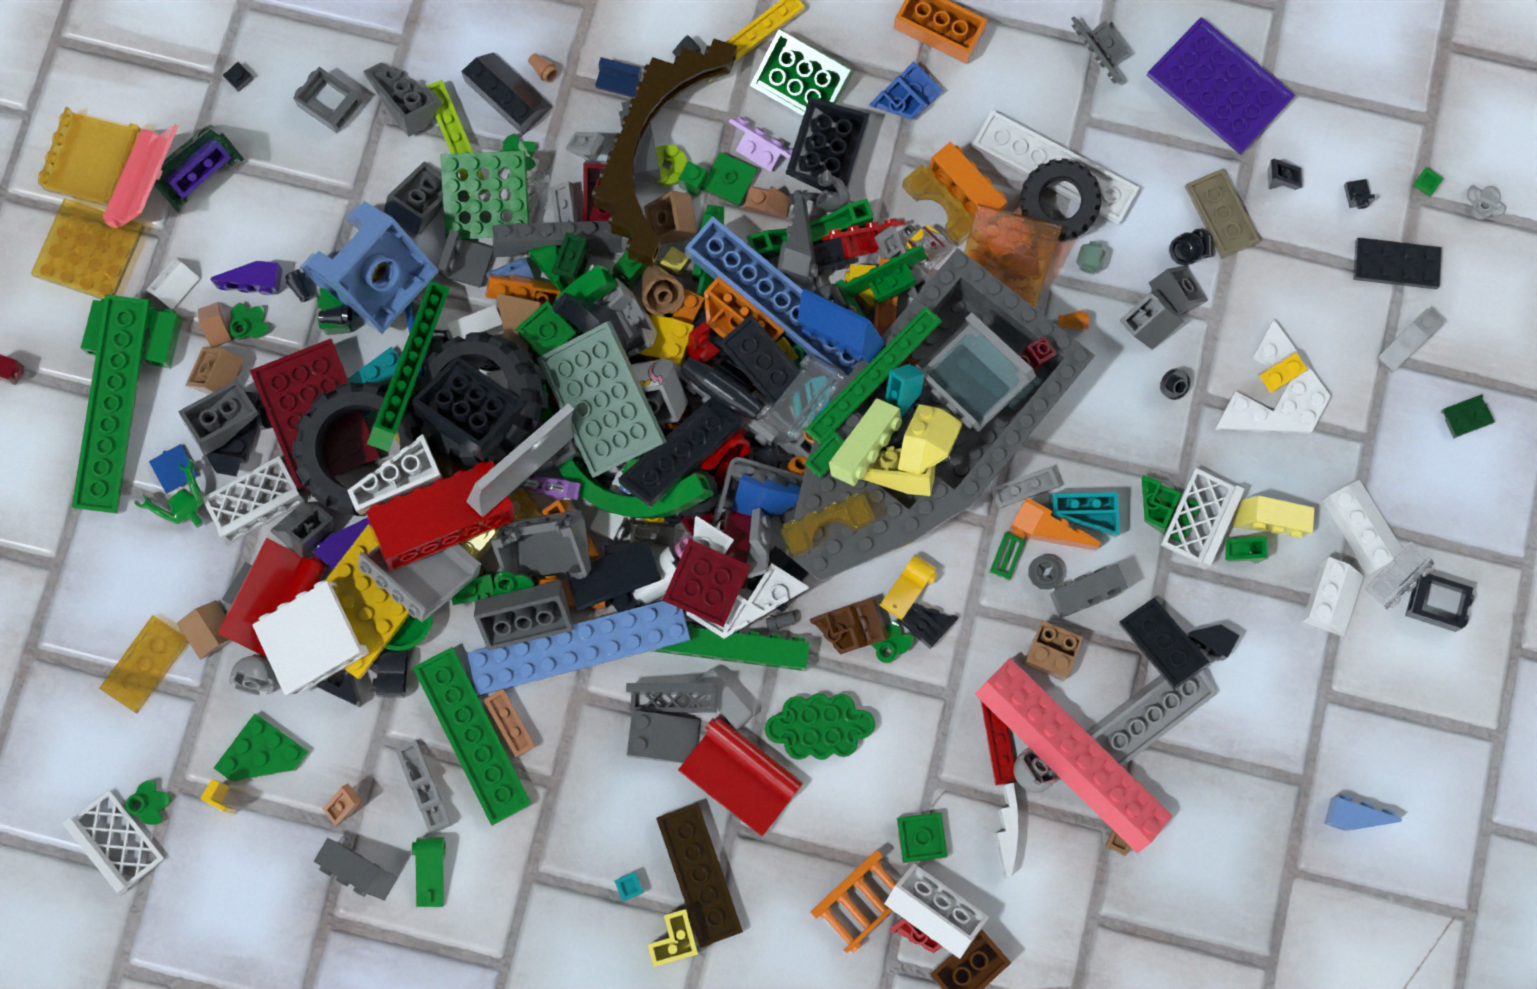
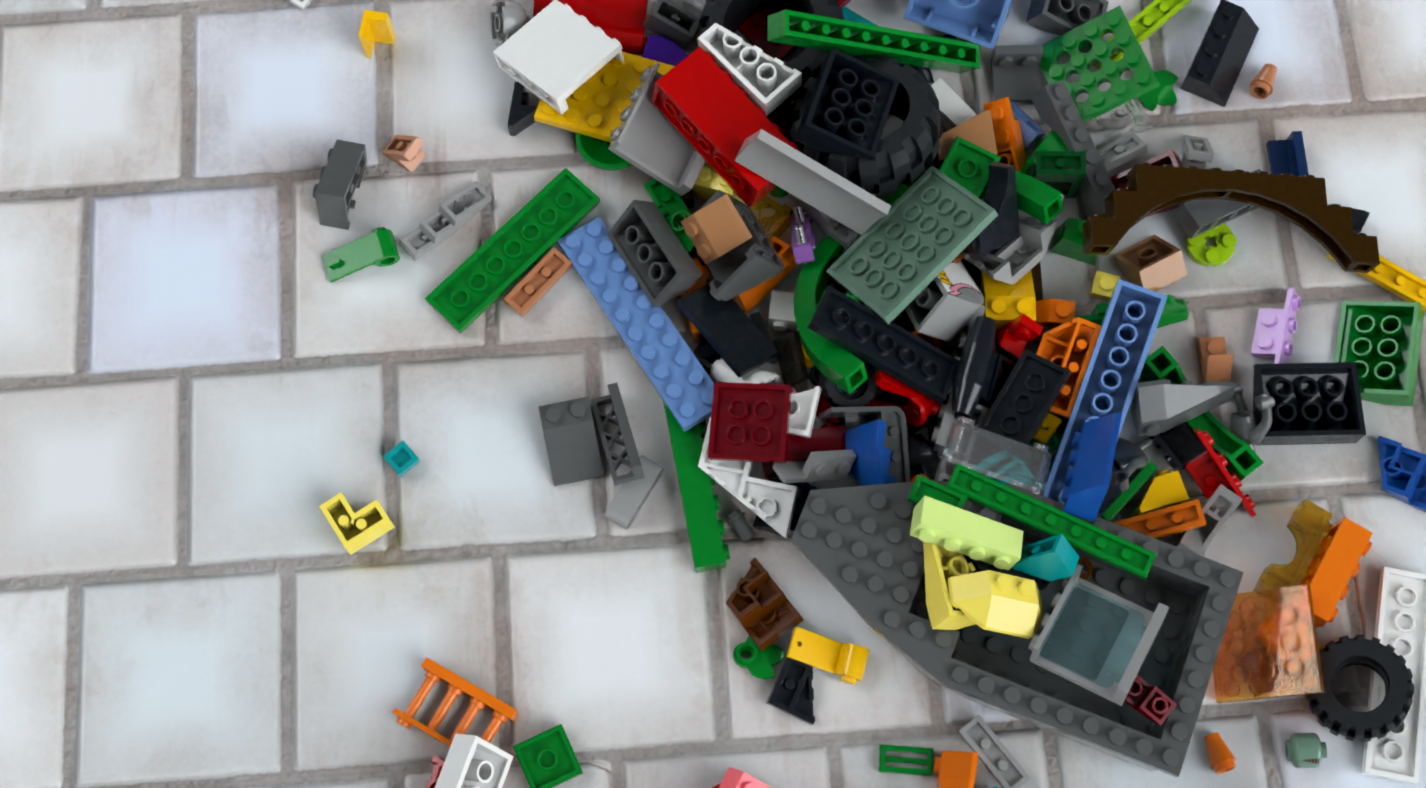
camera: 75 degrees right, 5 degrees down
(260, 752) = (435, 58): green plate -> none
(391, 674) = (551, 151): black brick -> none
(526, 555) = (716, 229): none -> medium nougat slope
(661, 291) = (1060, 275): medium nougat cone -> none
(692, 178) = (1206, 272): green brick -> none
(699, 875) = (435, 528): dark brown plate -> none
(729, 179) = (1223, 313): green plate -> none
(740, 776) = (554, 537): red door -> none
(819, 726) = (637, 606): green plate -> none
(853, 513) = (832, 496): clear yellow arch -> none
(890, 277) = (1180, 515): green bracket -> none
(934, 244) = (1238, 549): clear torso -> none

